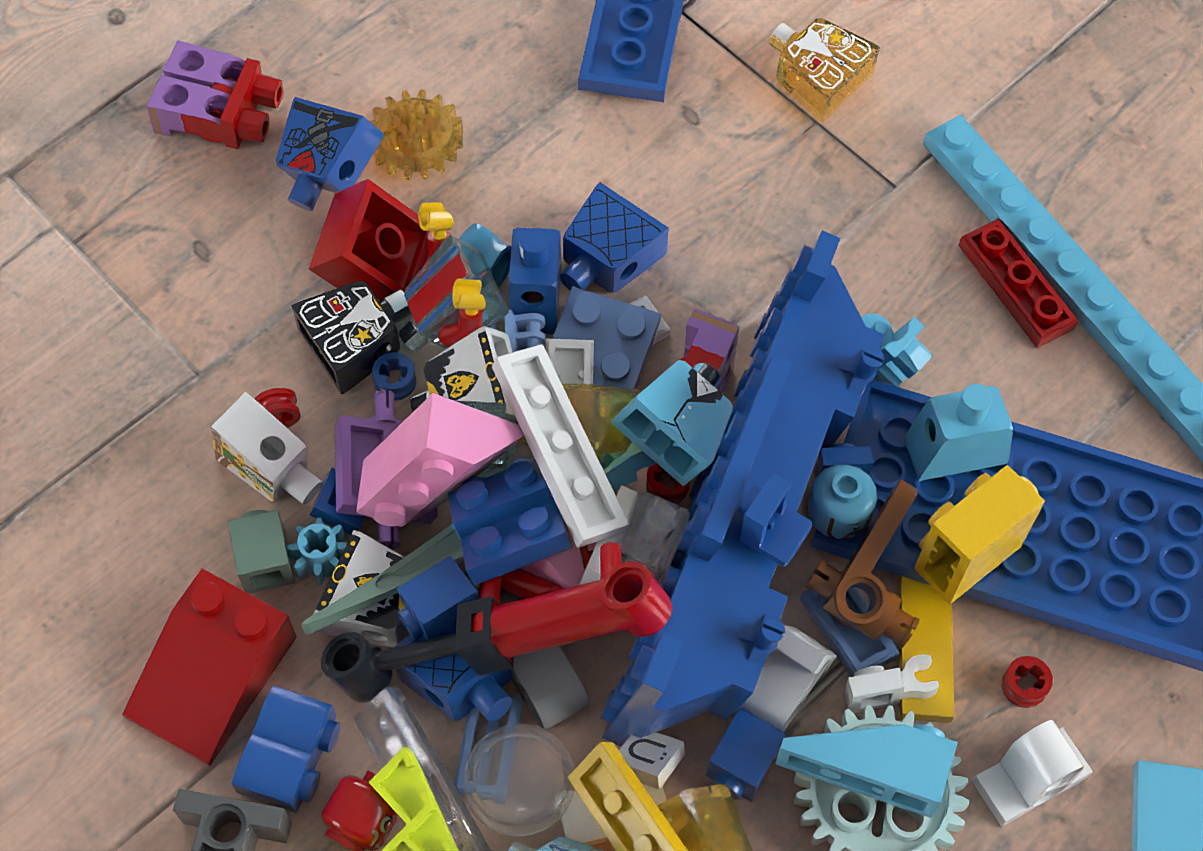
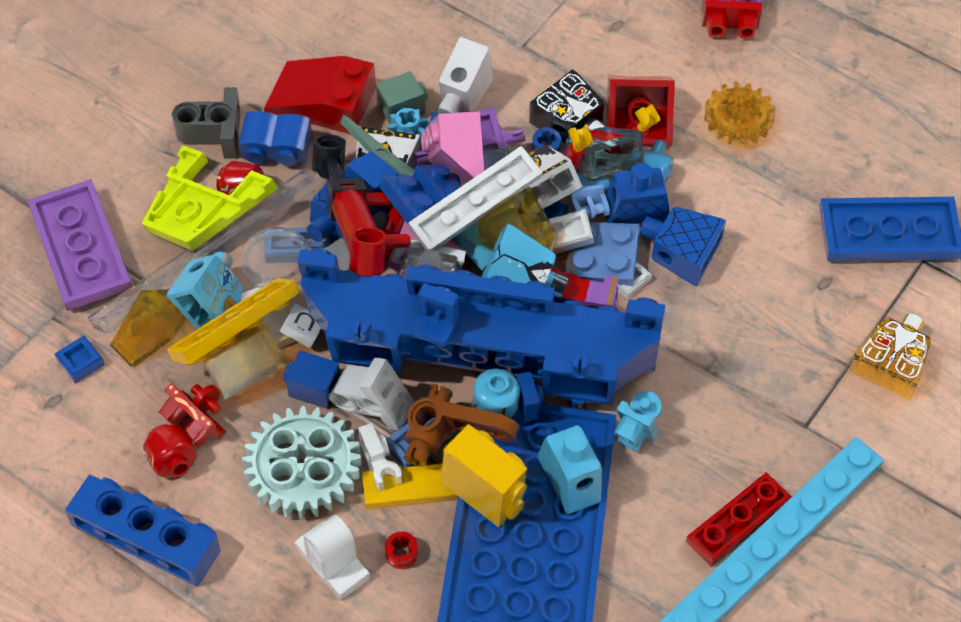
camera: 80 degrees right, 5 degrees down
(281, 404) = (503, 85): red bush -> none
(324, 150) = (702, 61): blue torso -> none
(885, 763) = (306, 449): medium azure slope -> none

